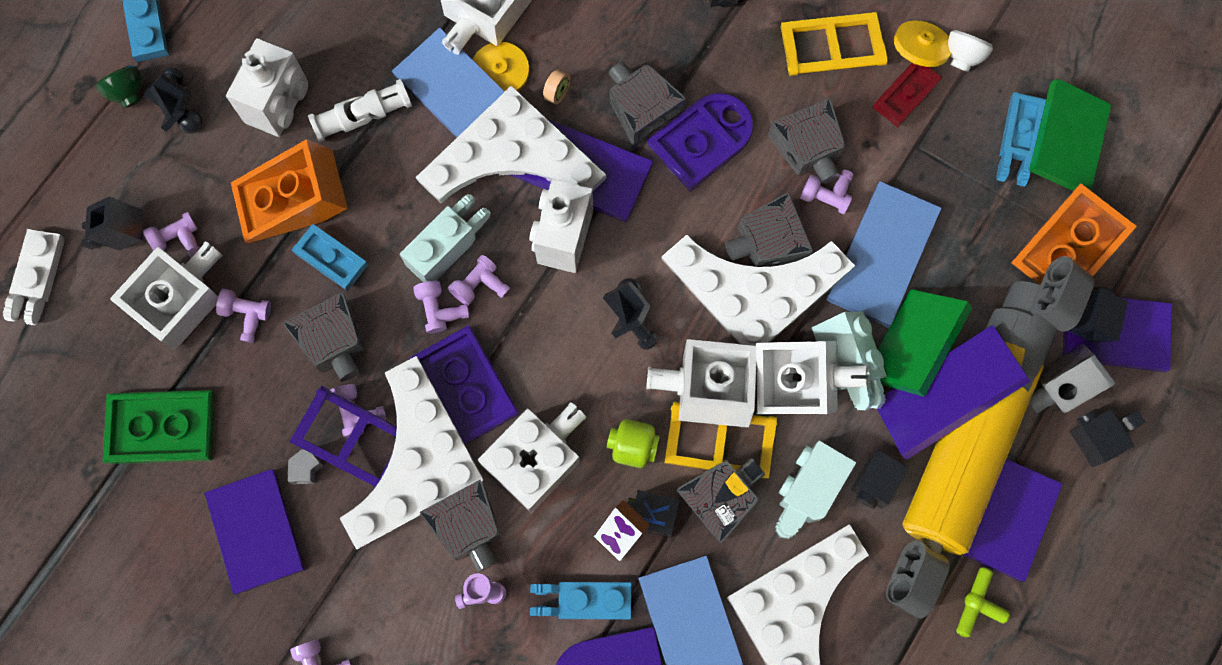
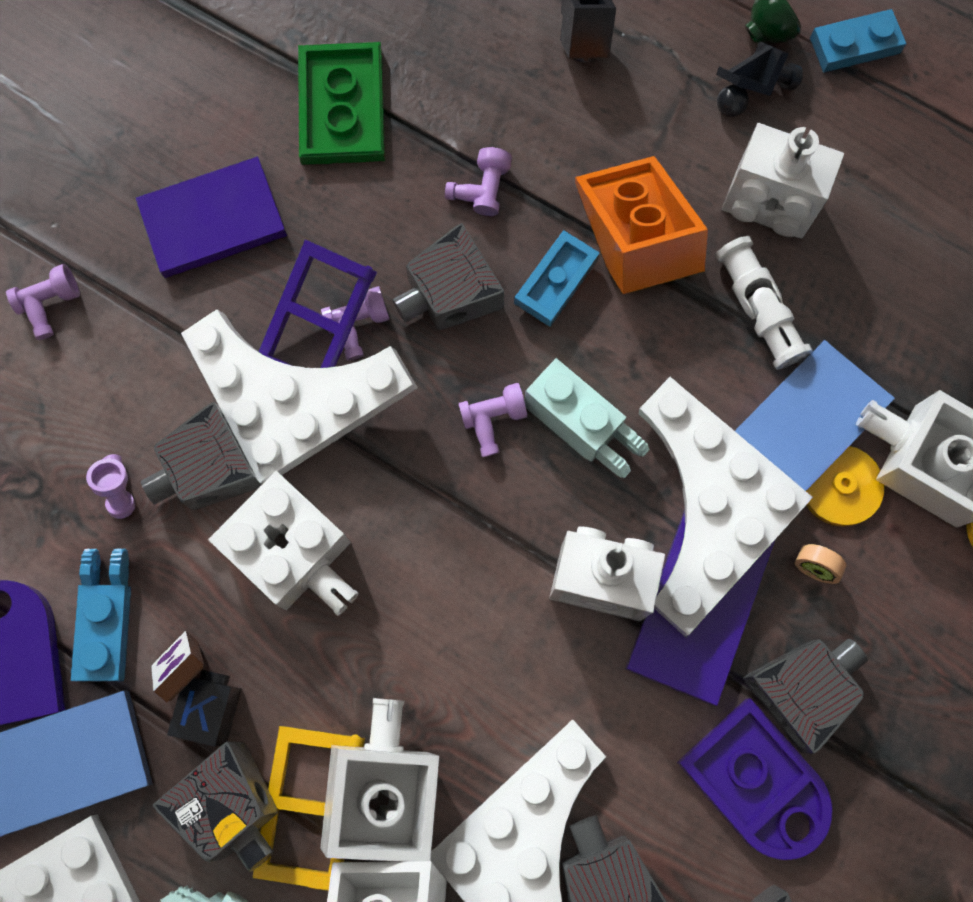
camera: 90 degrees right, 0 degrees up
(162, 277) = (498, 92): white brick -> none
(182, 228) = (574, 77): lavender piece -> none
(303, 468) = (280, 263): light grey piece -> none
(467, 384) = (390, 456): dark purple tile -> none
(481, 273) = (541, 472): lavender piece -> none
(631, 309) = (488, 676): black piece -> none
(633, 443) = (302, 682): lime head -> none

